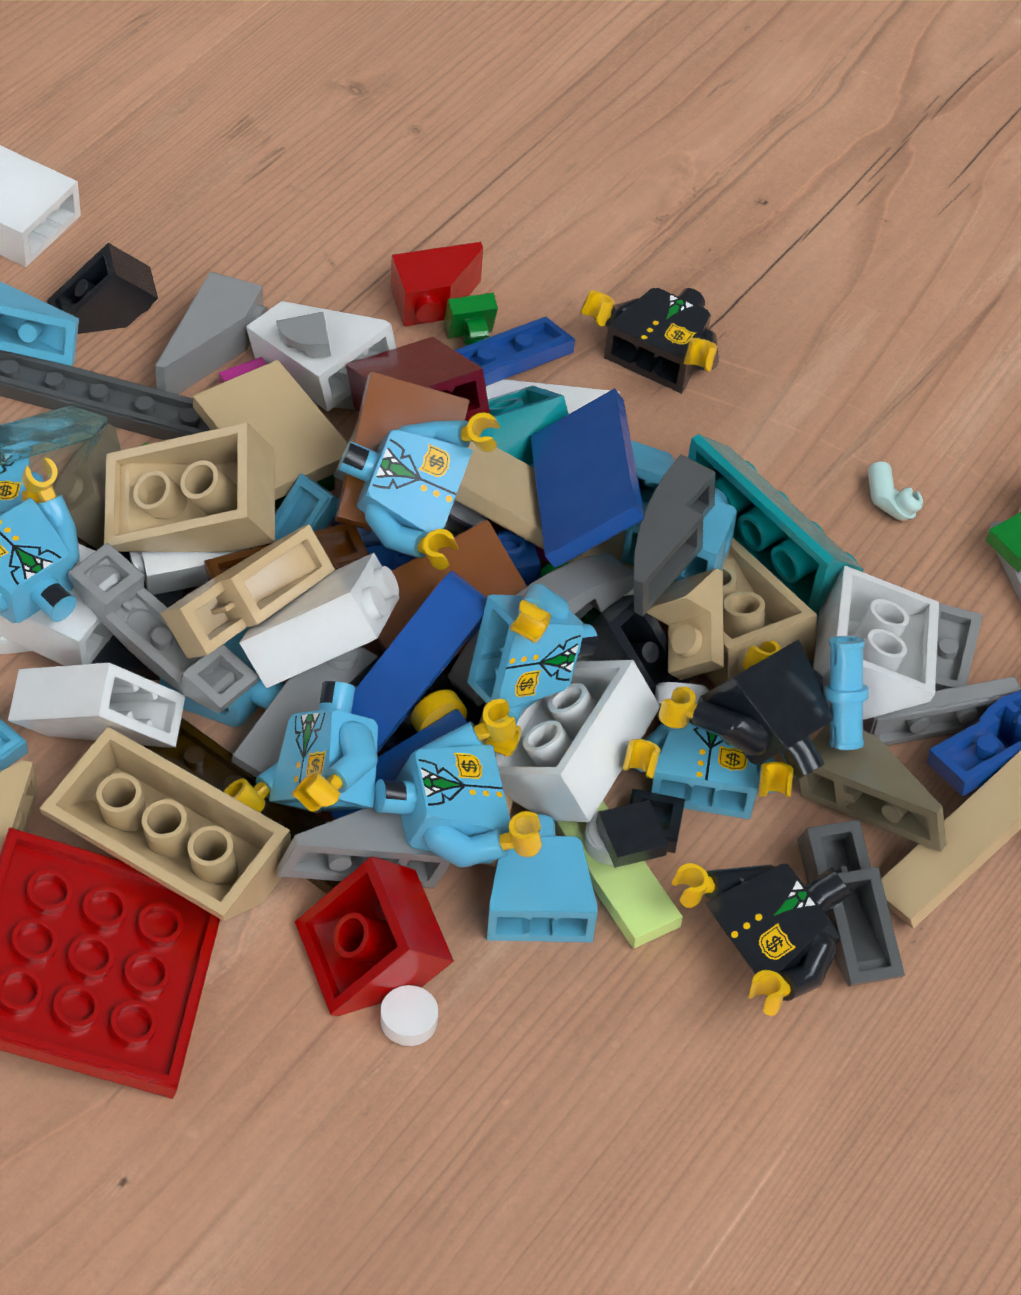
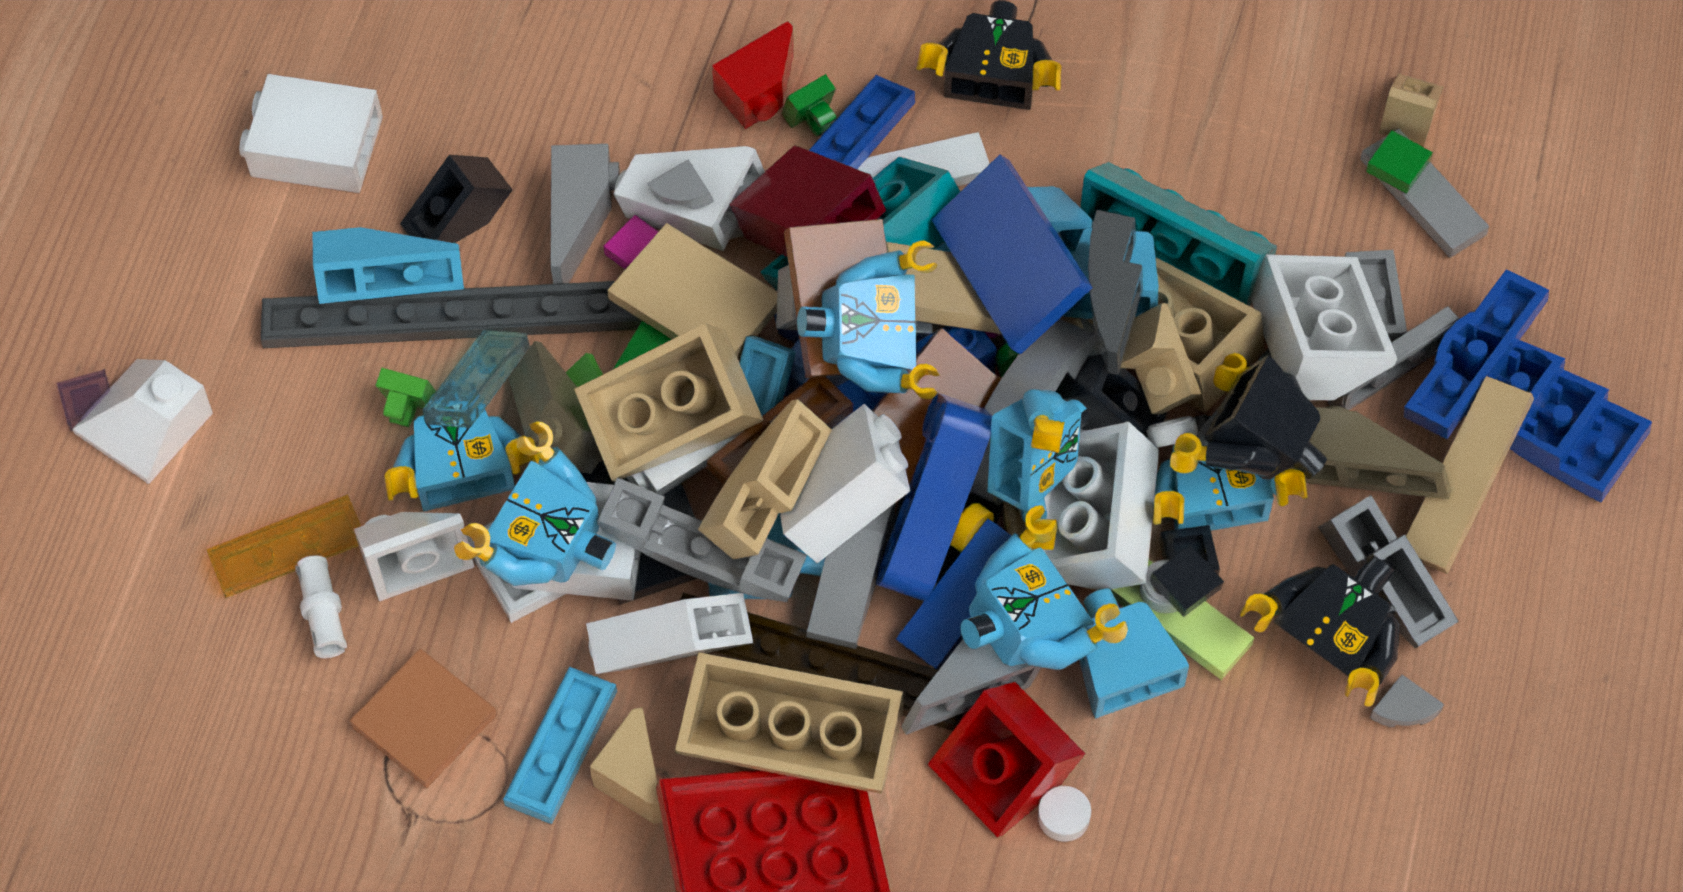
camera: 15 degrees left, 10 degrees up
(323, 760) = (899, 619): medium azure torso -> none
(814, 1037) = (1406, 705): none -> light grey tile
(846, 692) = (1324, 386): medium azure pin -> none
(898, 504) = (1261, 156): light aqua arm -> none

